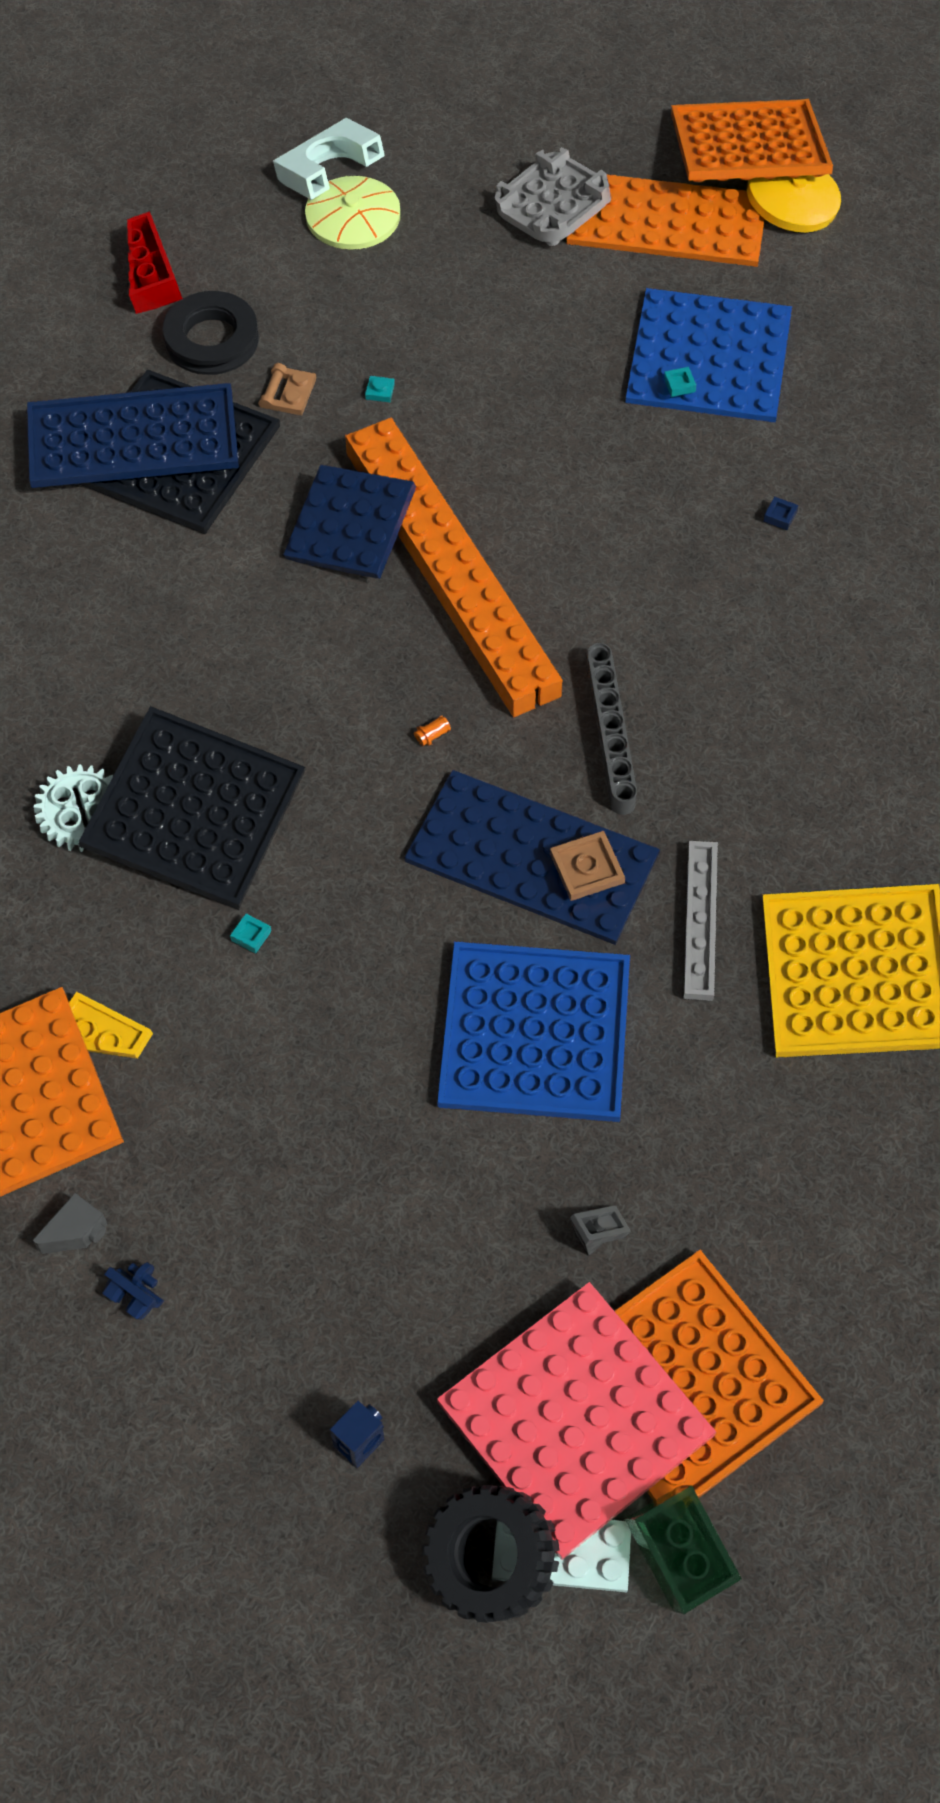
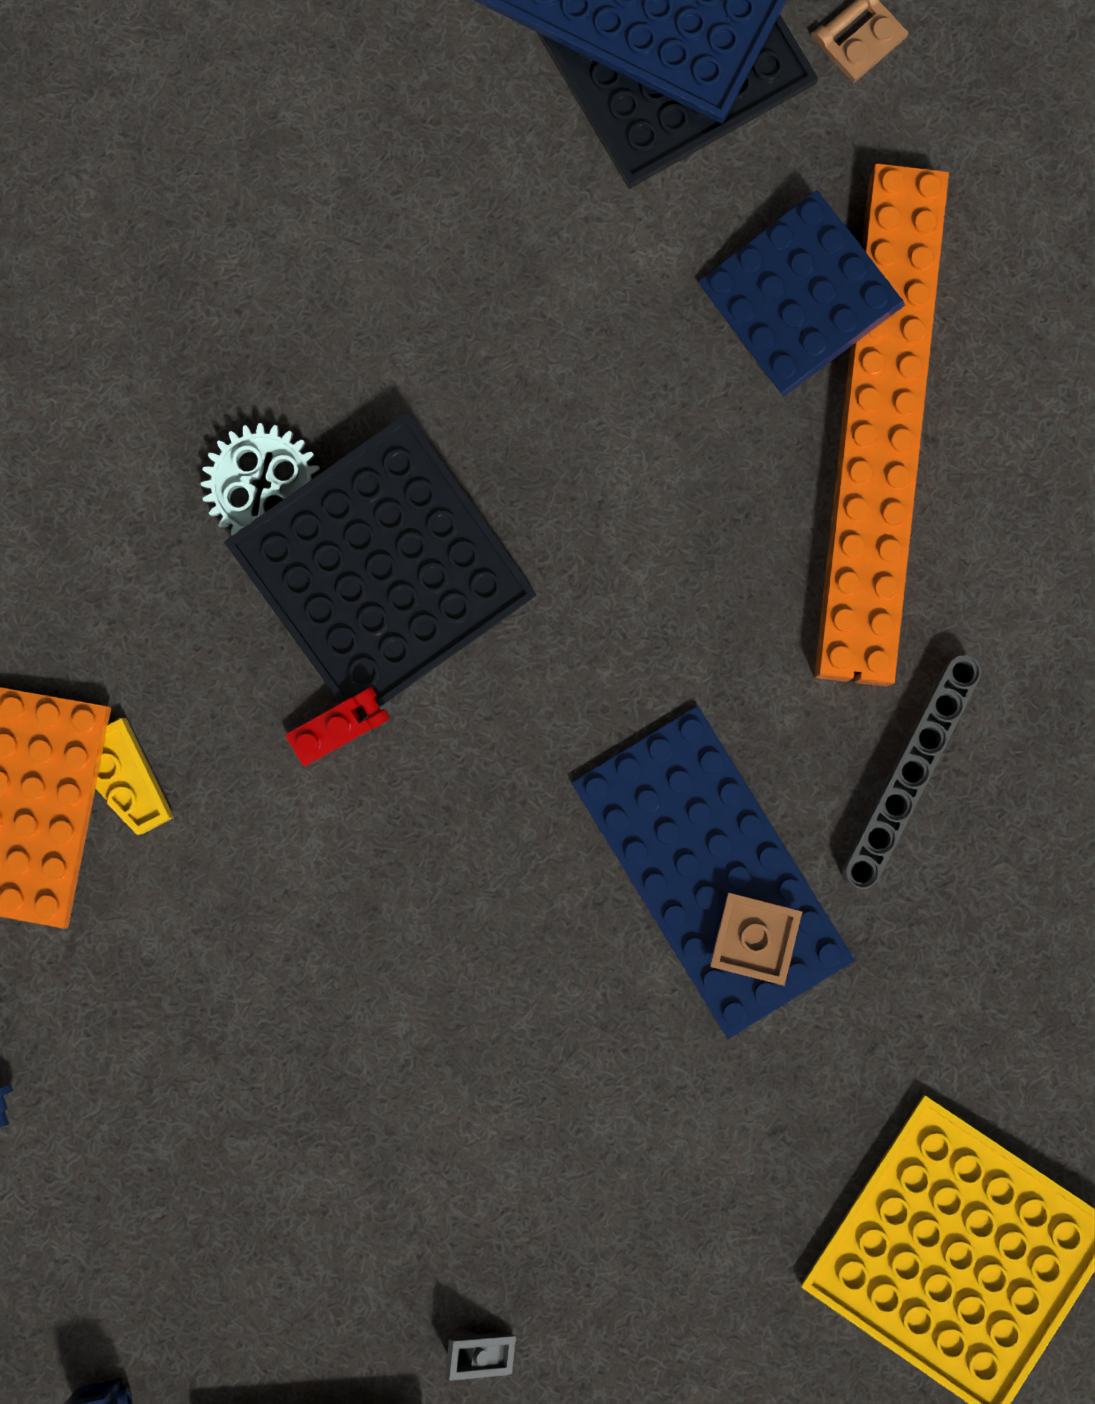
camera: 35 degrees right, 25 degrees up
(227, 910) = (336, 726): none -> red plate
(250, 933) = (347, 766): teal plate -> none
(380, 389) = (972, 105): teal plate -> none
(431, 731) = (709, 638): orange pin -> none
(535, 1032) = (569, 1086): blue plate -> none
(700, 921) = (837, 1076): light grey plate -> none

